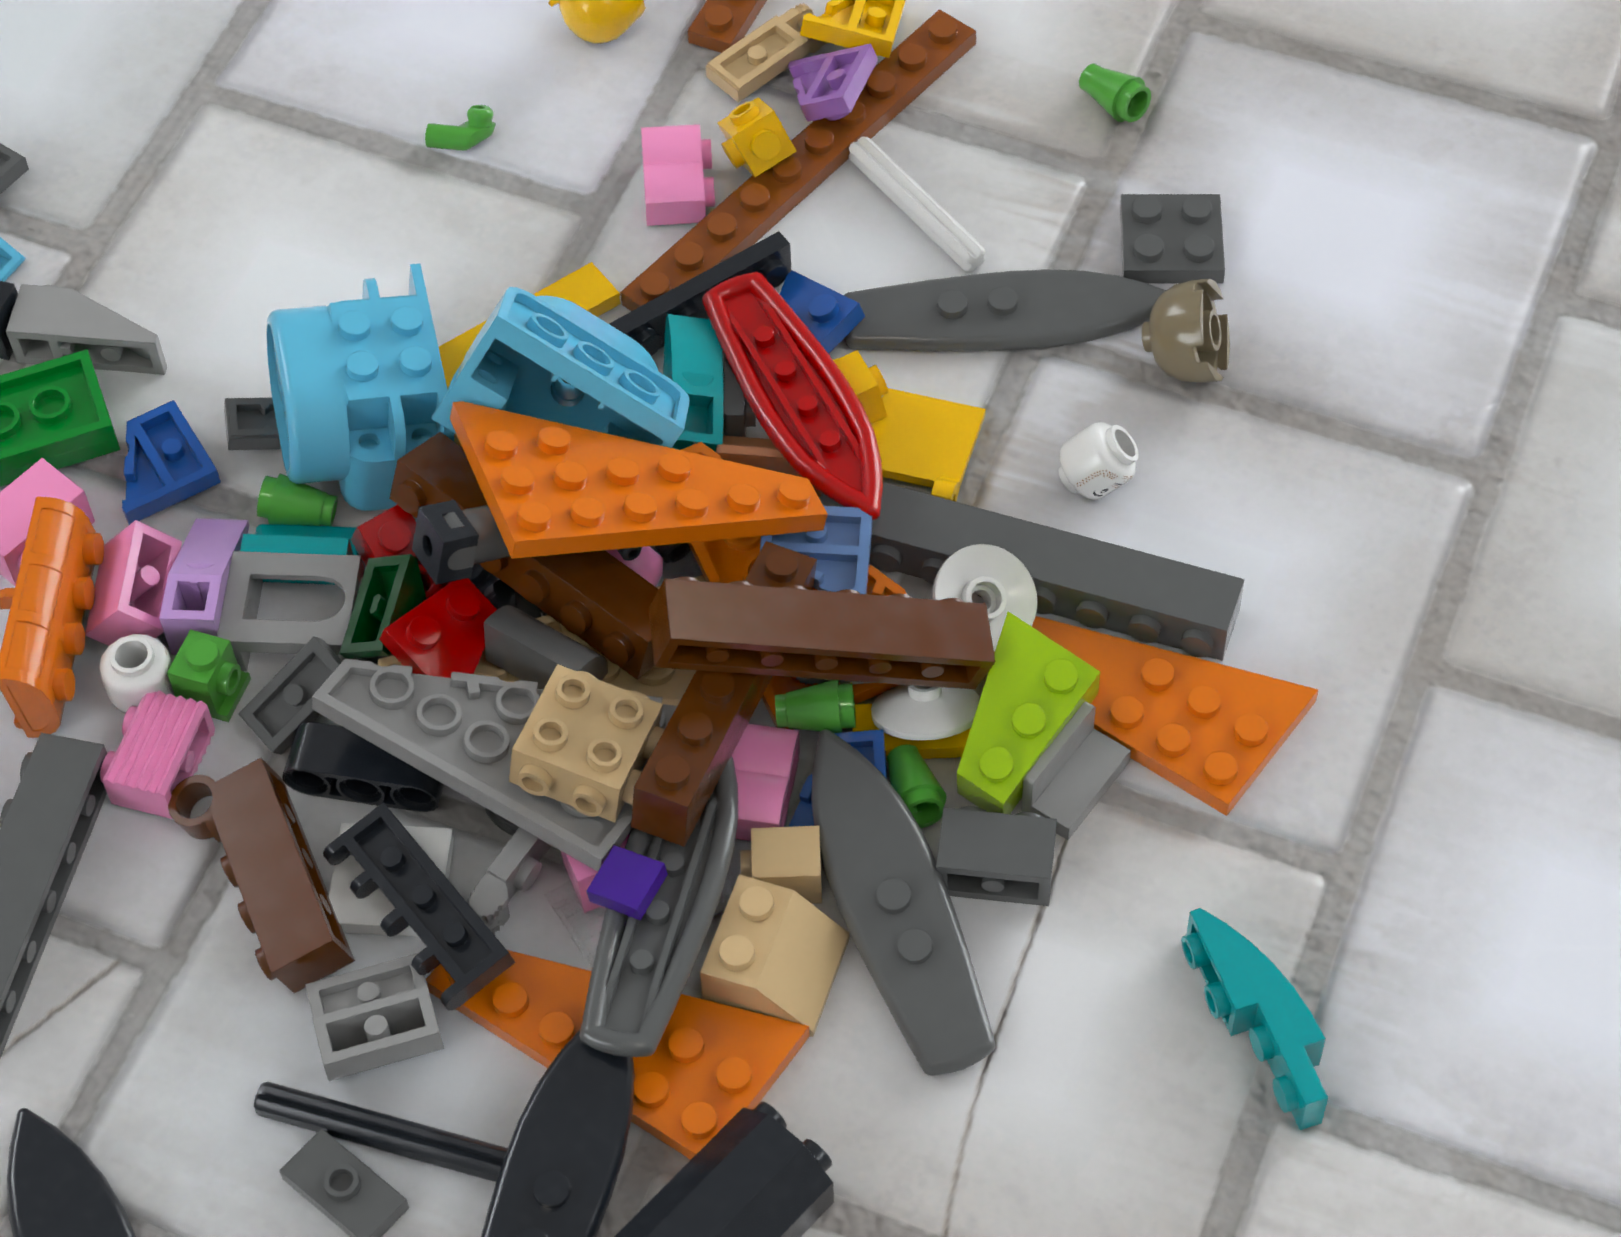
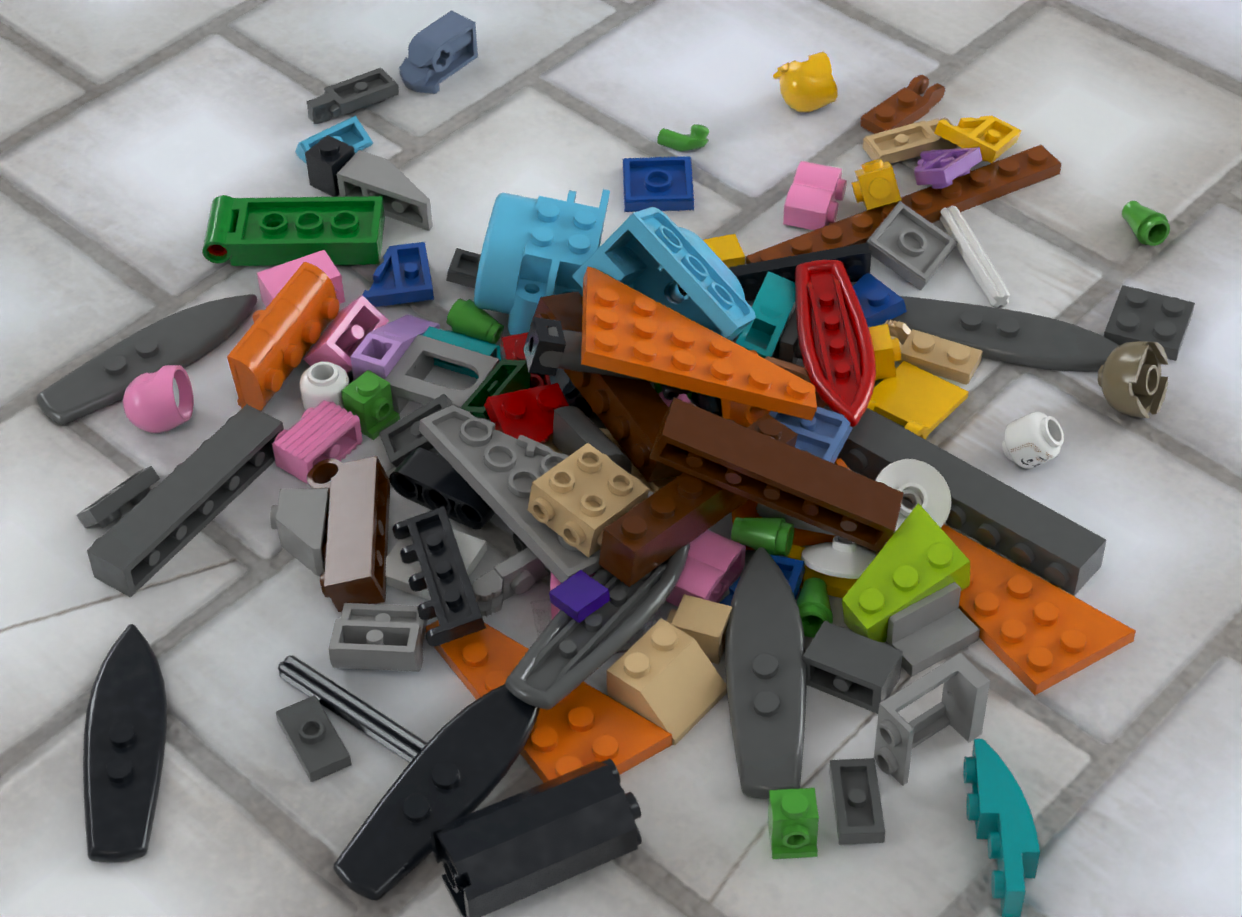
camera: 20 degrees right, 10 degrees down
(62, 90) = (439, 52): none -> sand blue piece
(196, 887) = (302, 524): none -> light grey slope
(453, 212) = (658, 183): none -> blue tile
(831, 213) = (910, 245): none -> light grey tile
(921, 365) = (935, 353): none -> tan hinge
(1010, 1099) = (793, 823): none -> bright green brick
(1073, 1039) = (857, 801): none -> dark grey plate
(1145, 859) = (961, 707): none -> light grey panel

